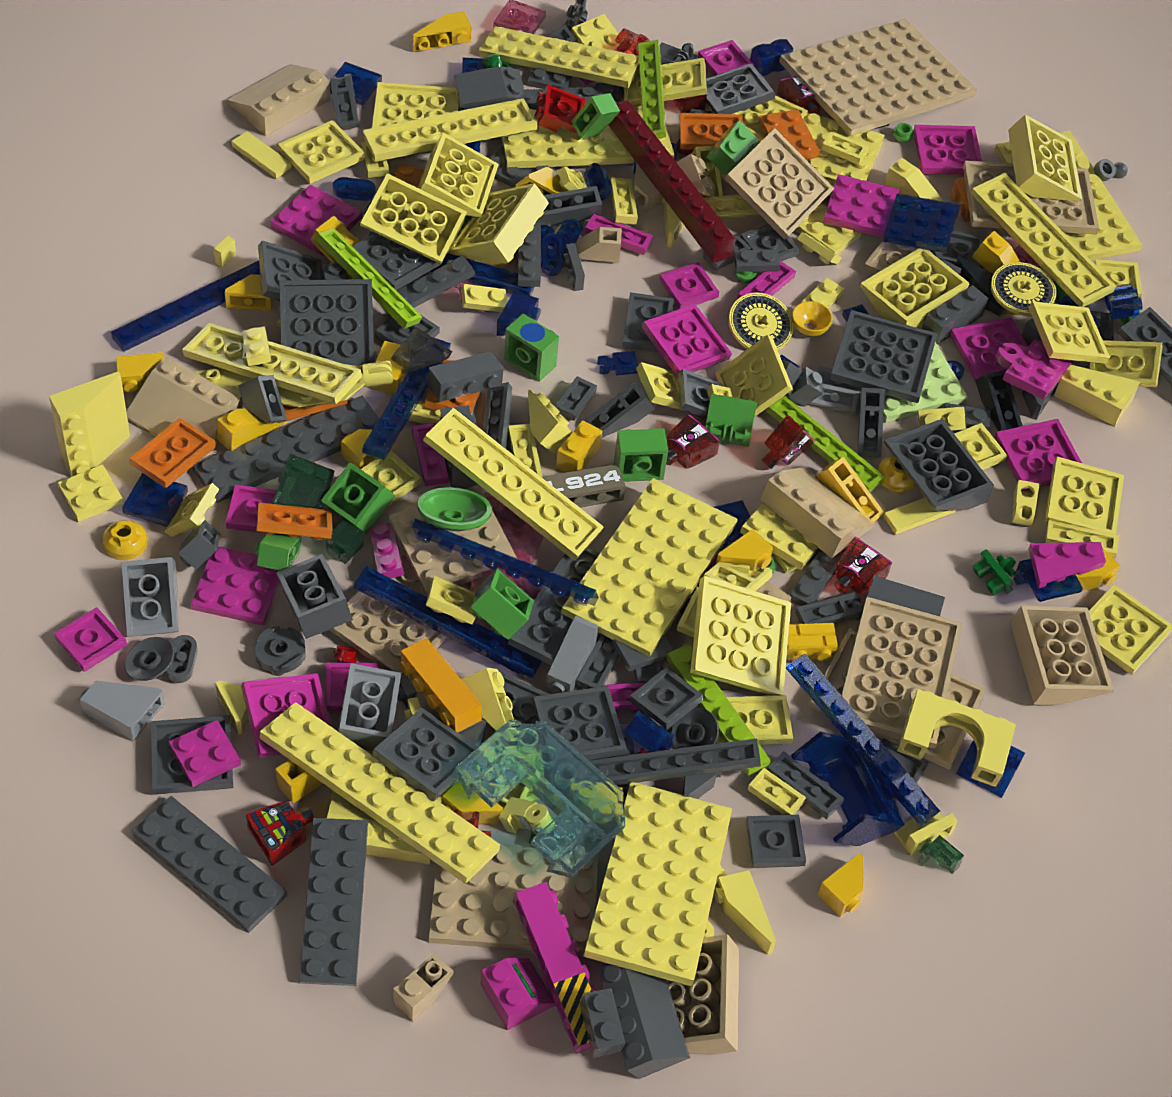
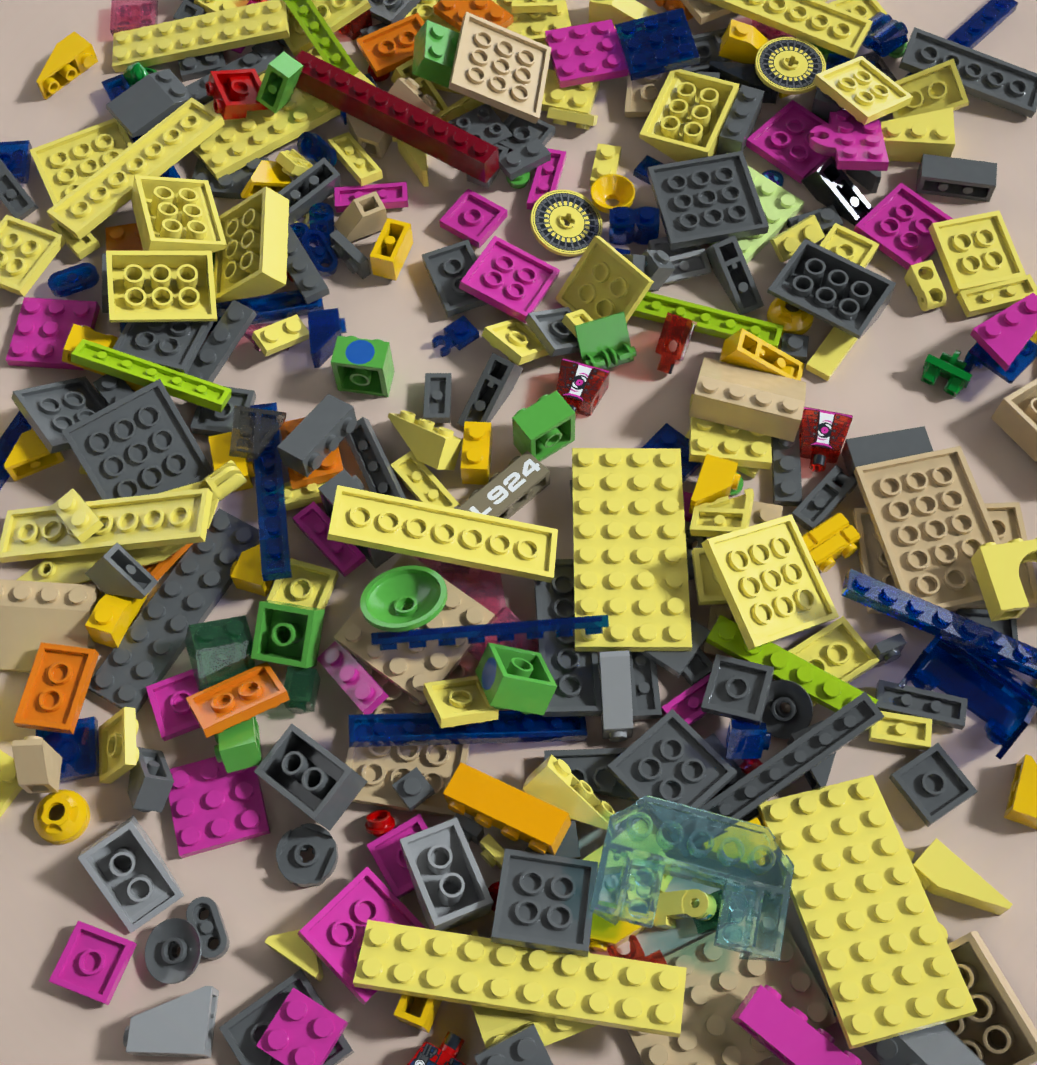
camera: 20 degrees left, 10 degrees up
(129, 491) = (36, 765): none -> tan slope
(382, 643) = (413, 789): none -> dark grey plate
(608, 277) = (391, 249): none -> yellow brick
(740, 221) = (483, 124): none -> dark grey hinge
(804, 732) = (889, 649): none -> dark grey plate
(812, 348) = (633, 225): none -> clear blue brick
(886, 496) = (795, 346): none -> dark grey plate
(1109, 437) = (956, 177): none -> dark grey brick

